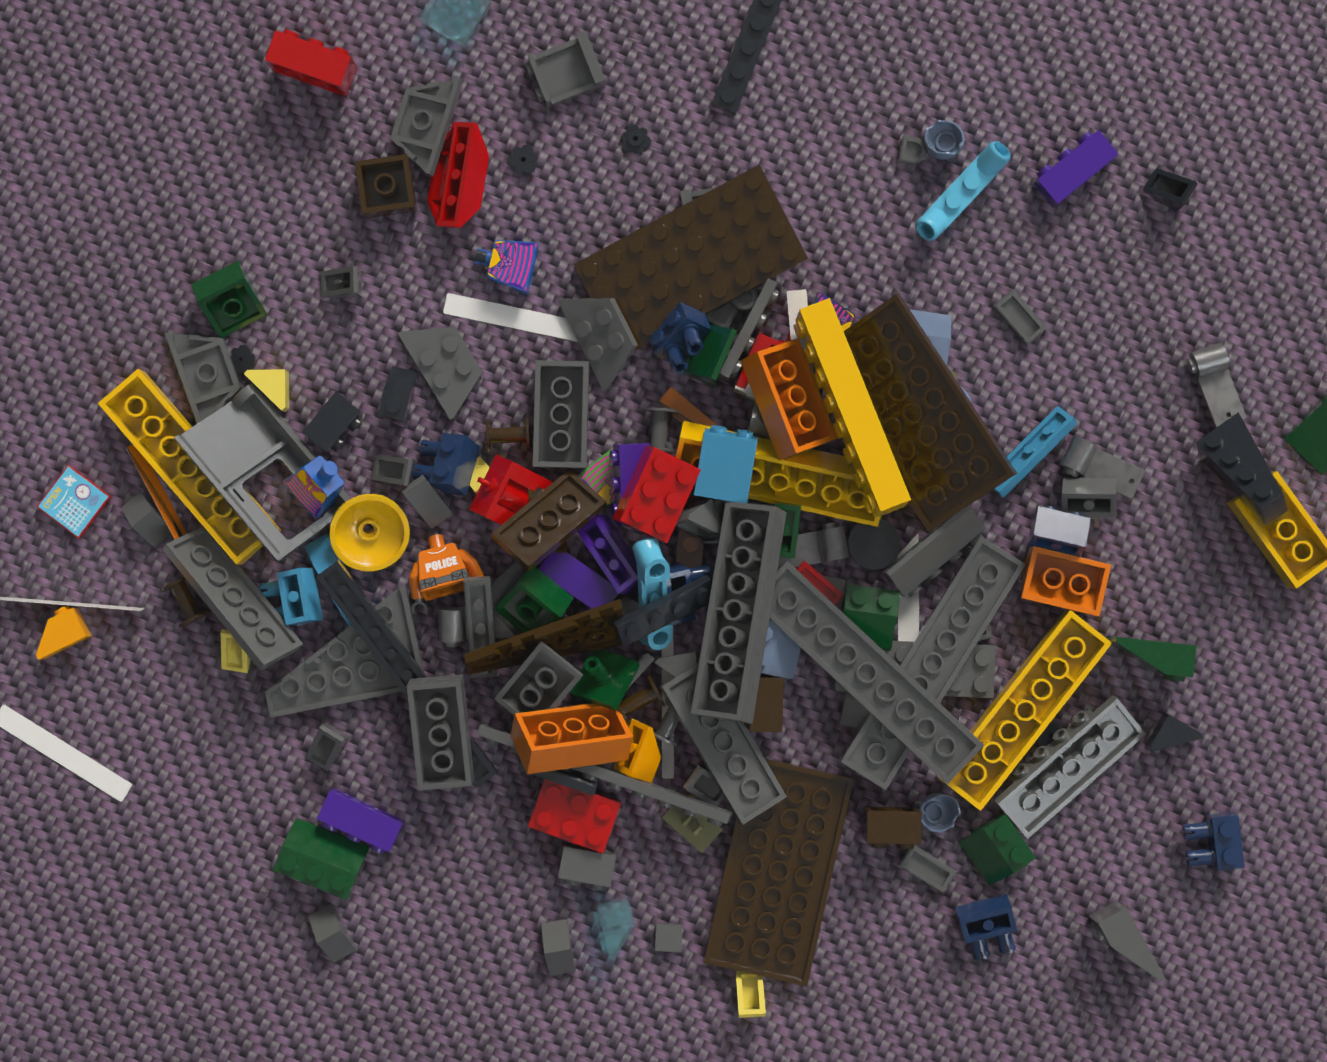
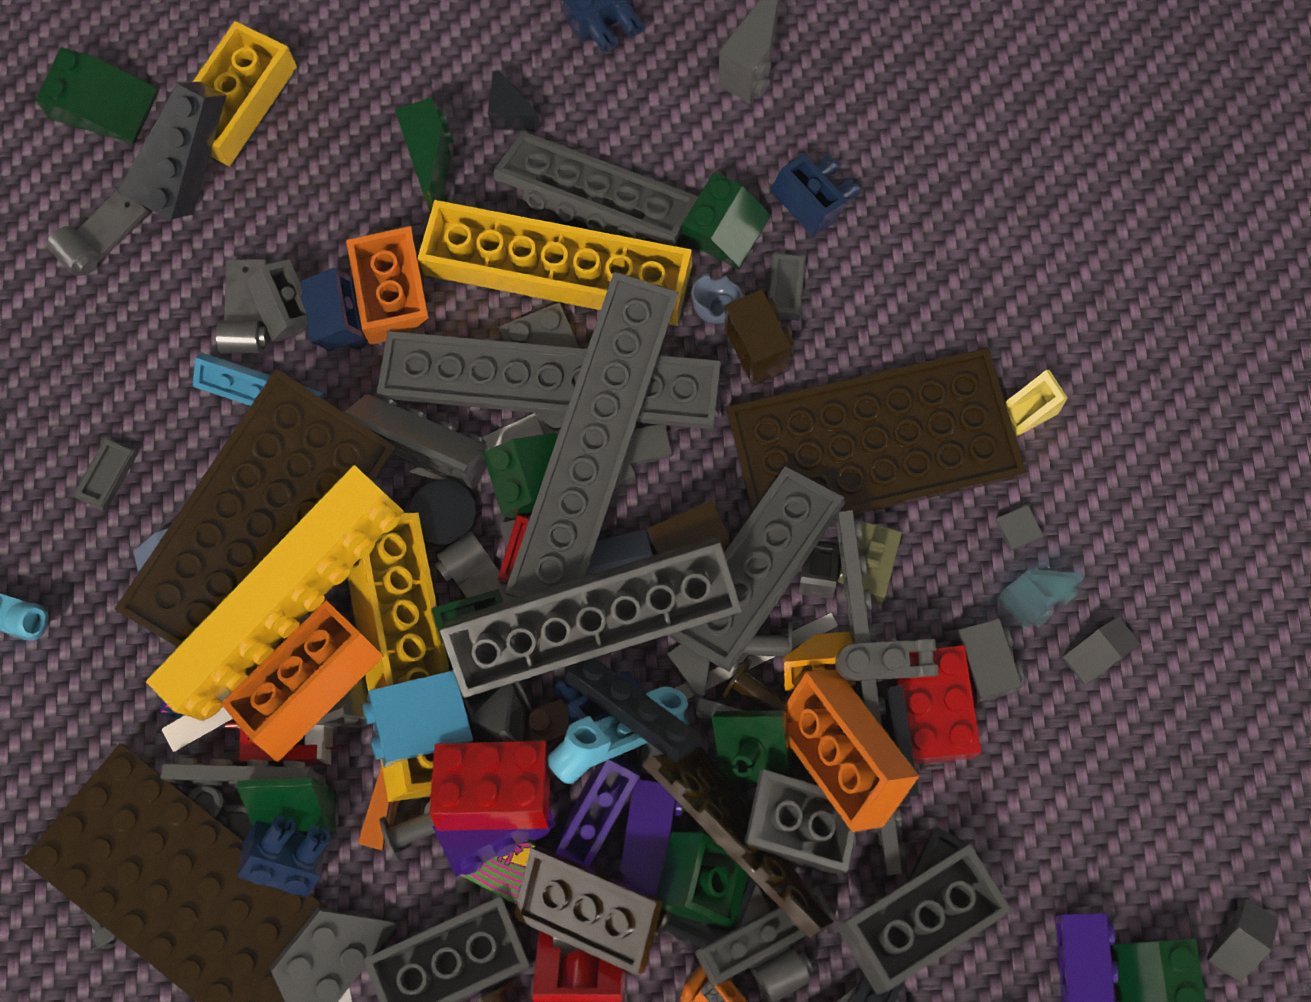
camera: 105 degrees left, 15 degrees down
(615, 794) = (886, 660): none -> dark grey plate

